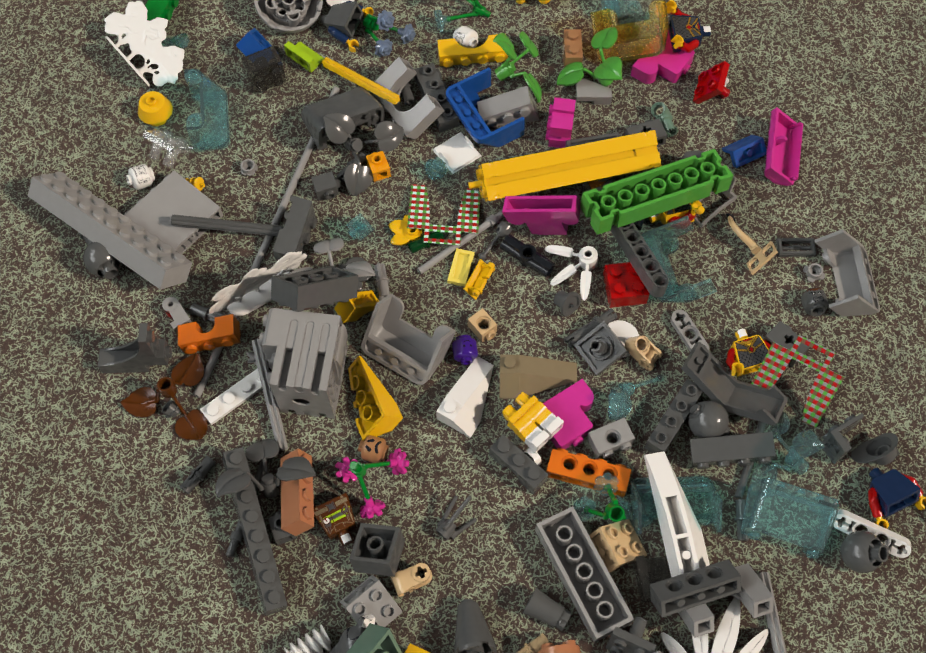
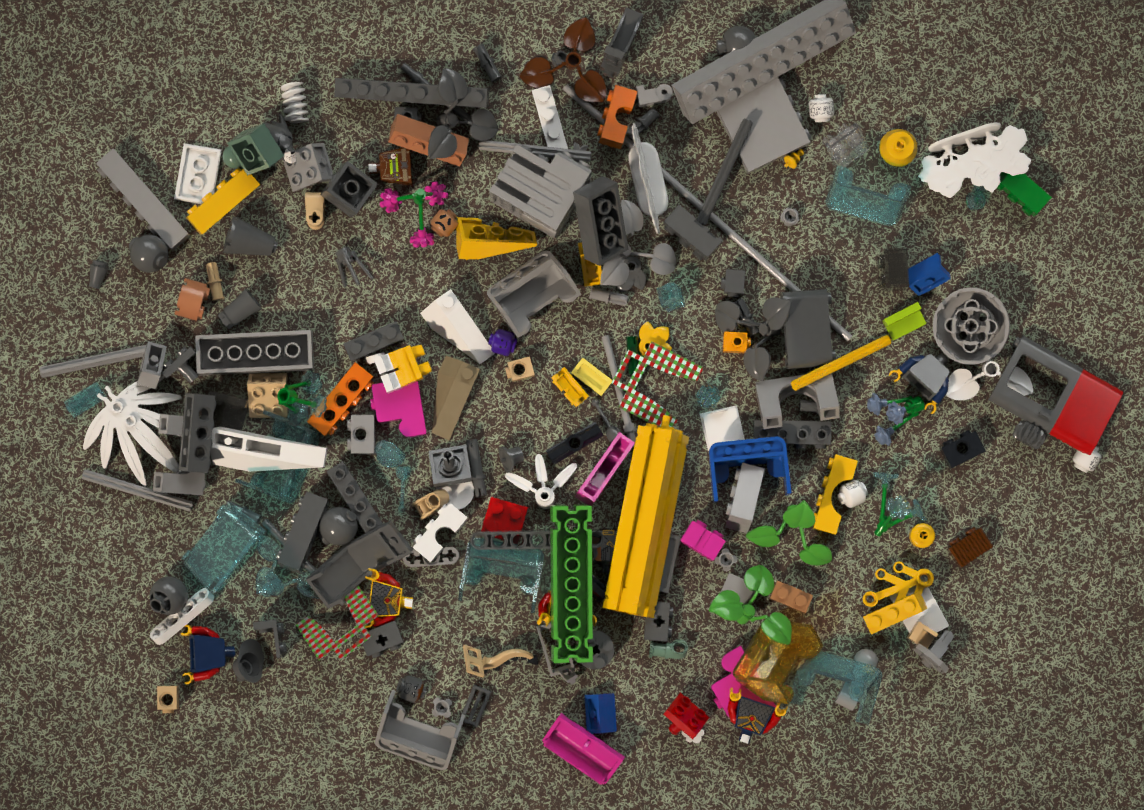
camera: 110 degrees right, 20 degrees up
(681, 336) = (449, 518): none -> white arch

